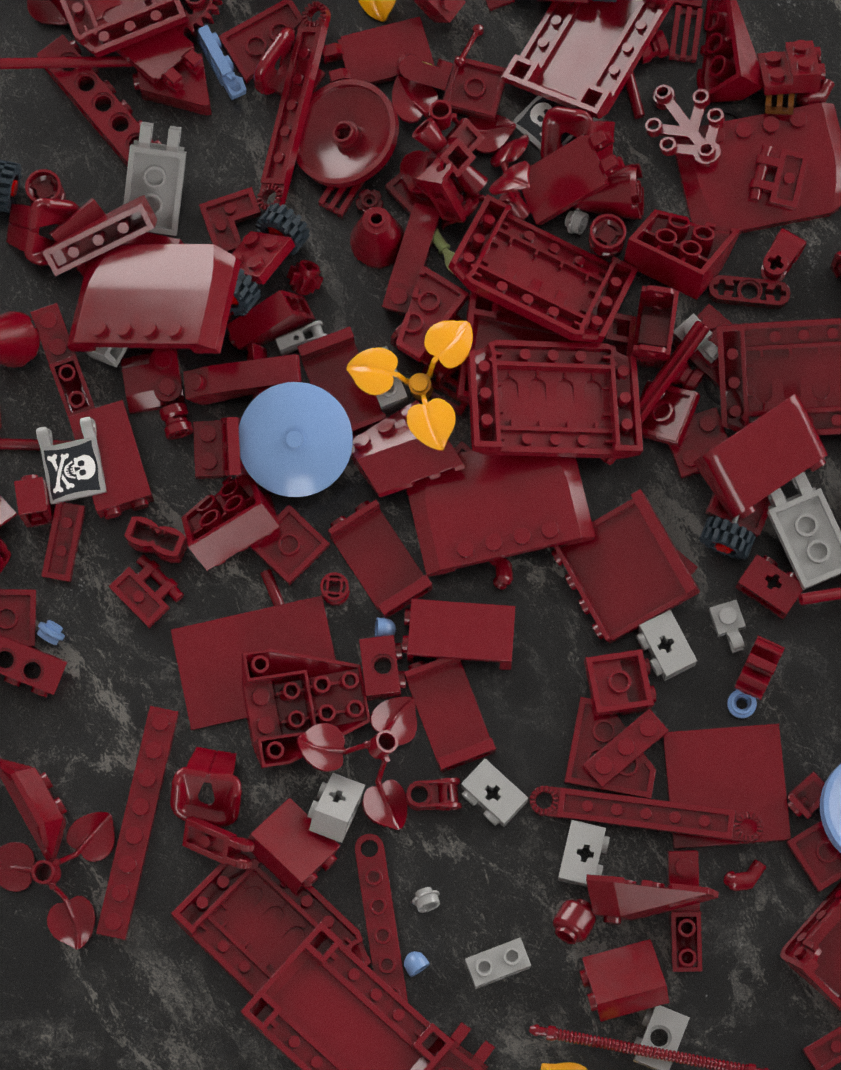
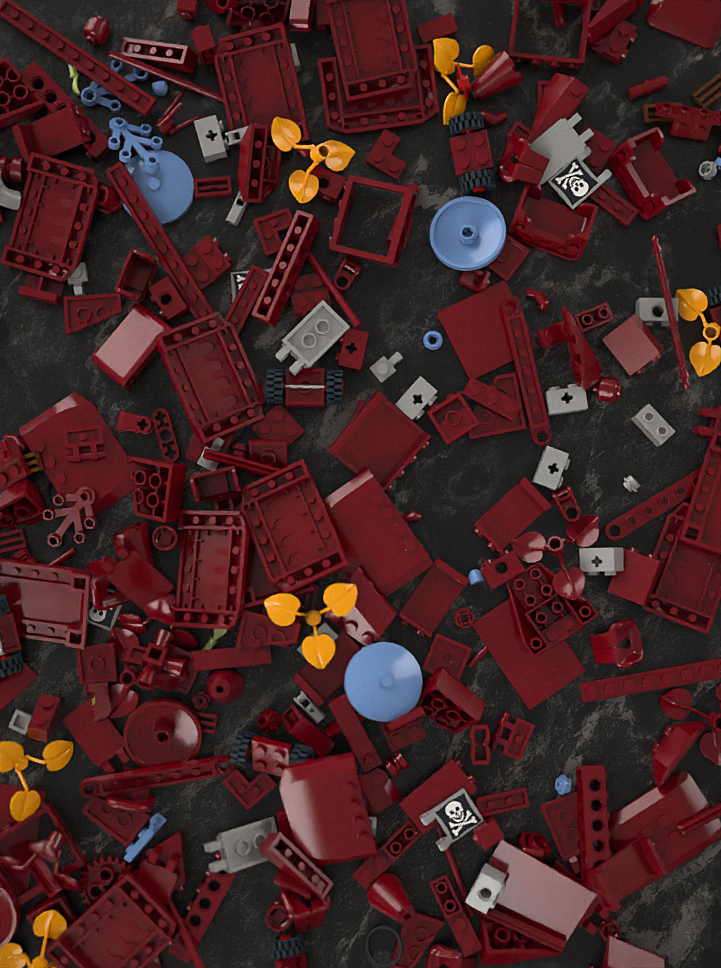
camera: 110 degrees left, 10 degrees up
(216, 843) = (653, 623): dark red hinge -> none
(415, 963) = (672, 475): medium blue hinge -> none
(444, 193) = (181, 652): dark red hinge -> none
(459, 631) = (461, 529): dark red panel -> none
(478, 30) = (55, 678): dark red hinge -> none
(576, 221) = (162, 562): light grey plate -> none
(759, 667) = (409, 336): dark red gear -> none
(762, 457) = (278, 382): dark red windscreen -> none

